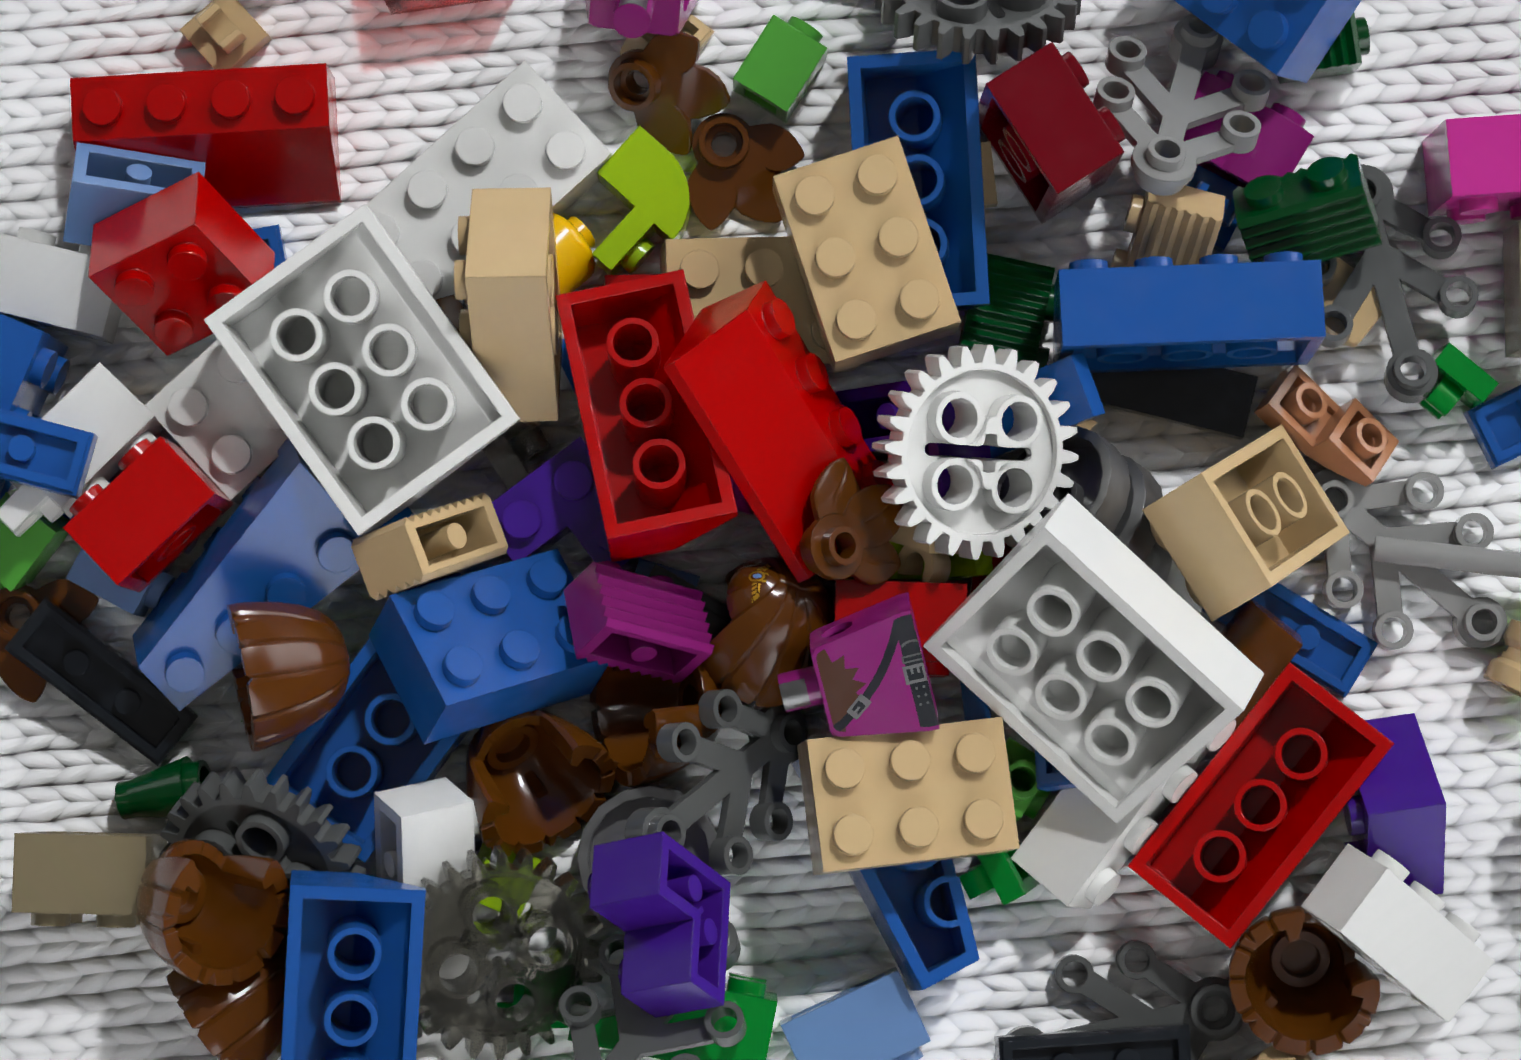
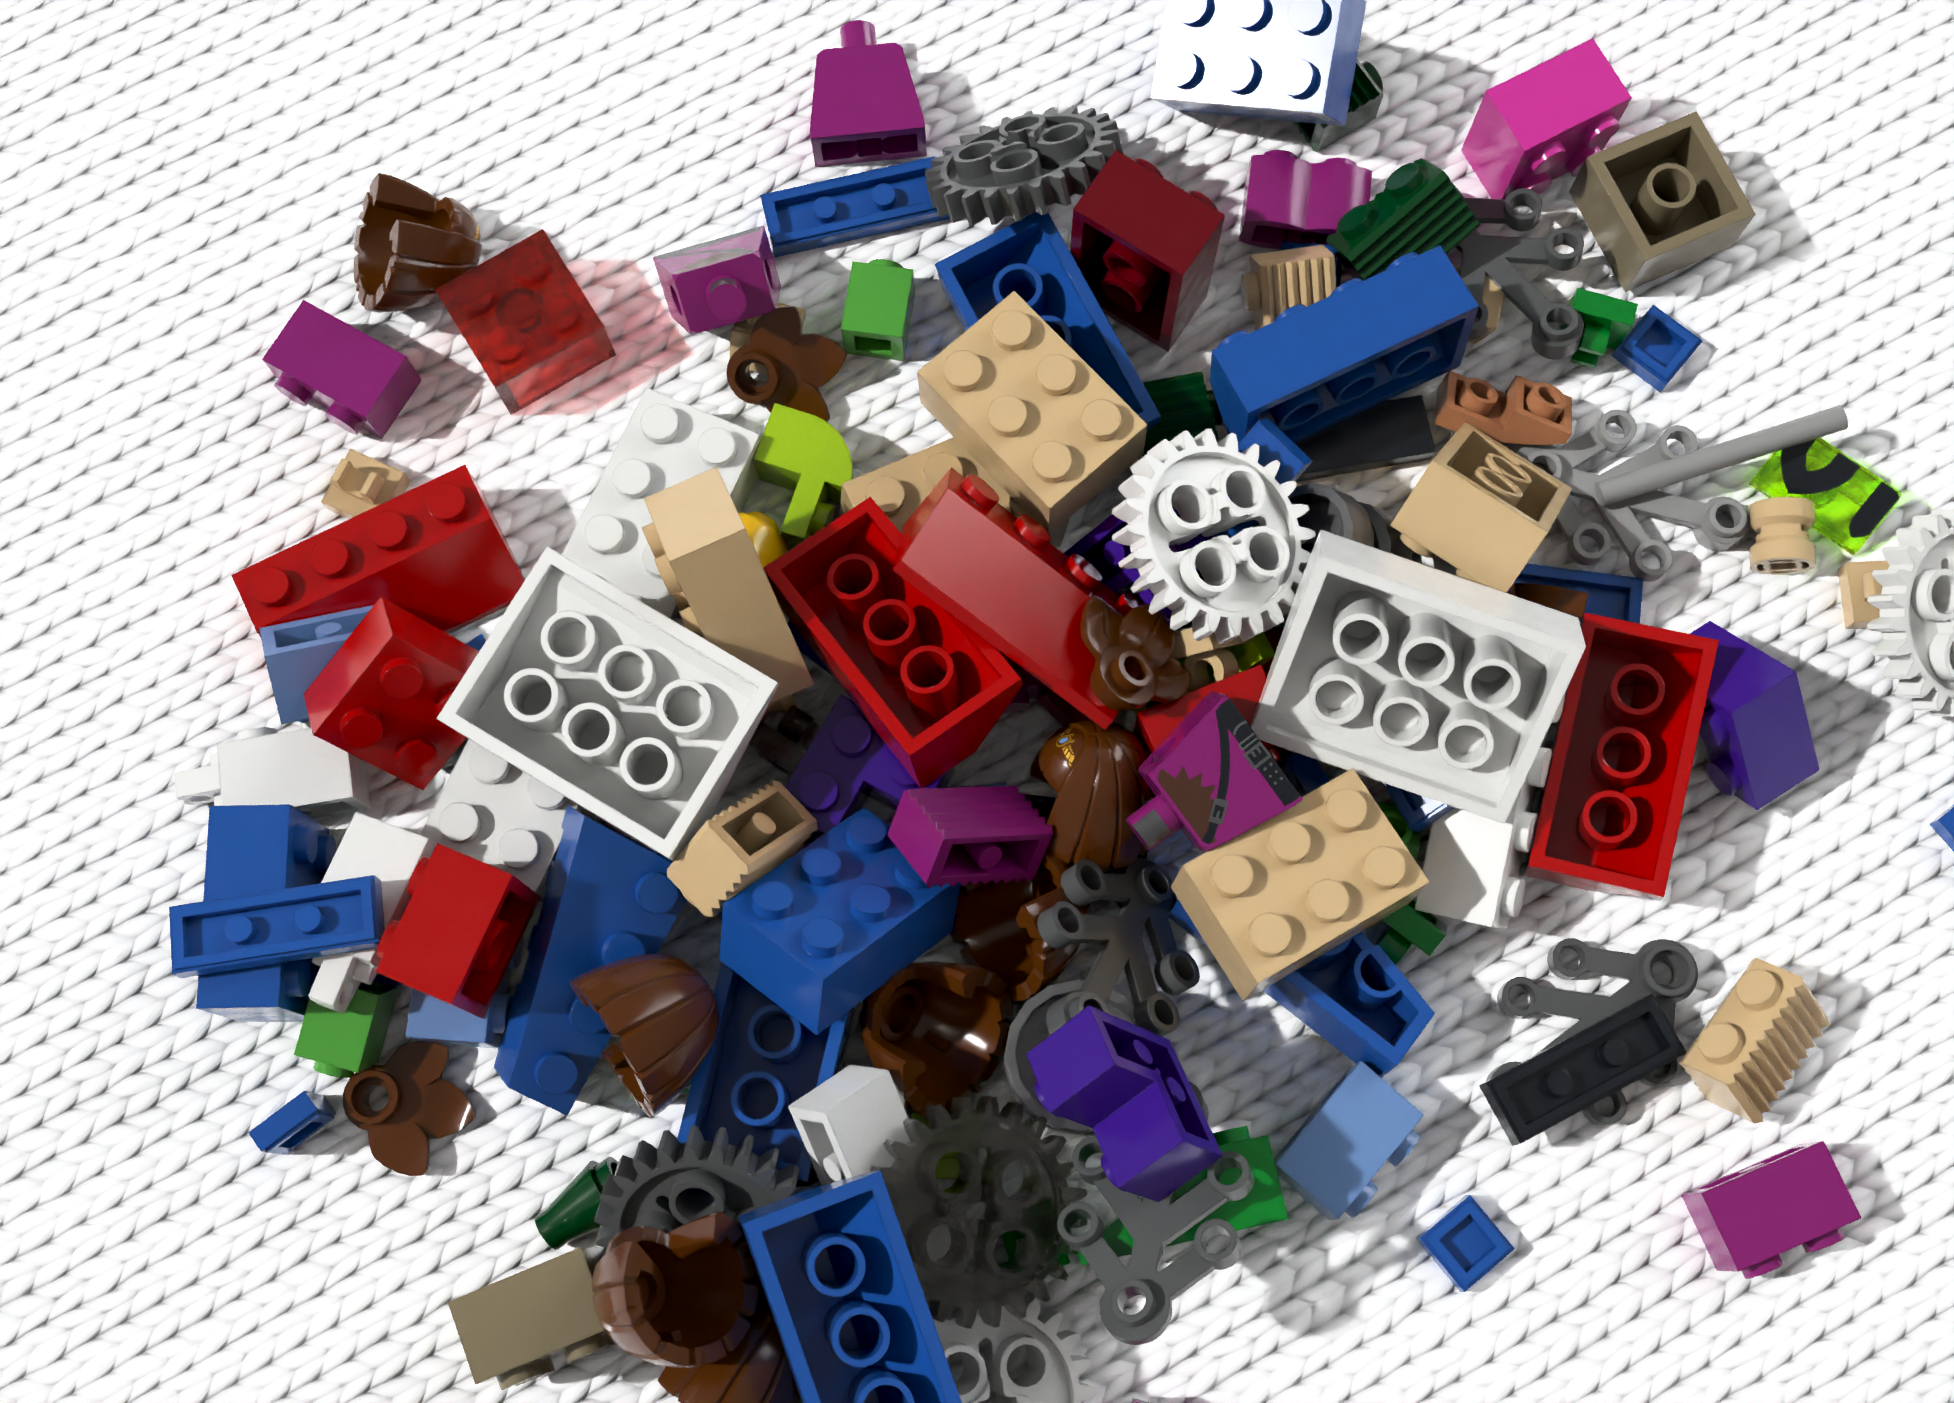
camera: 20 degrees left, 10 degrees down
(100, 681) = (480, 1124): black tile -> none
(744, 177) = (889, 420): reddish brown plate -> none
(1163, 160) = (1259, 220): light grey plant -> none
(1300, 984) = (1741, 906): reddish brown hair -> none
(1400, 929) = (1804, 815): white brick -> none

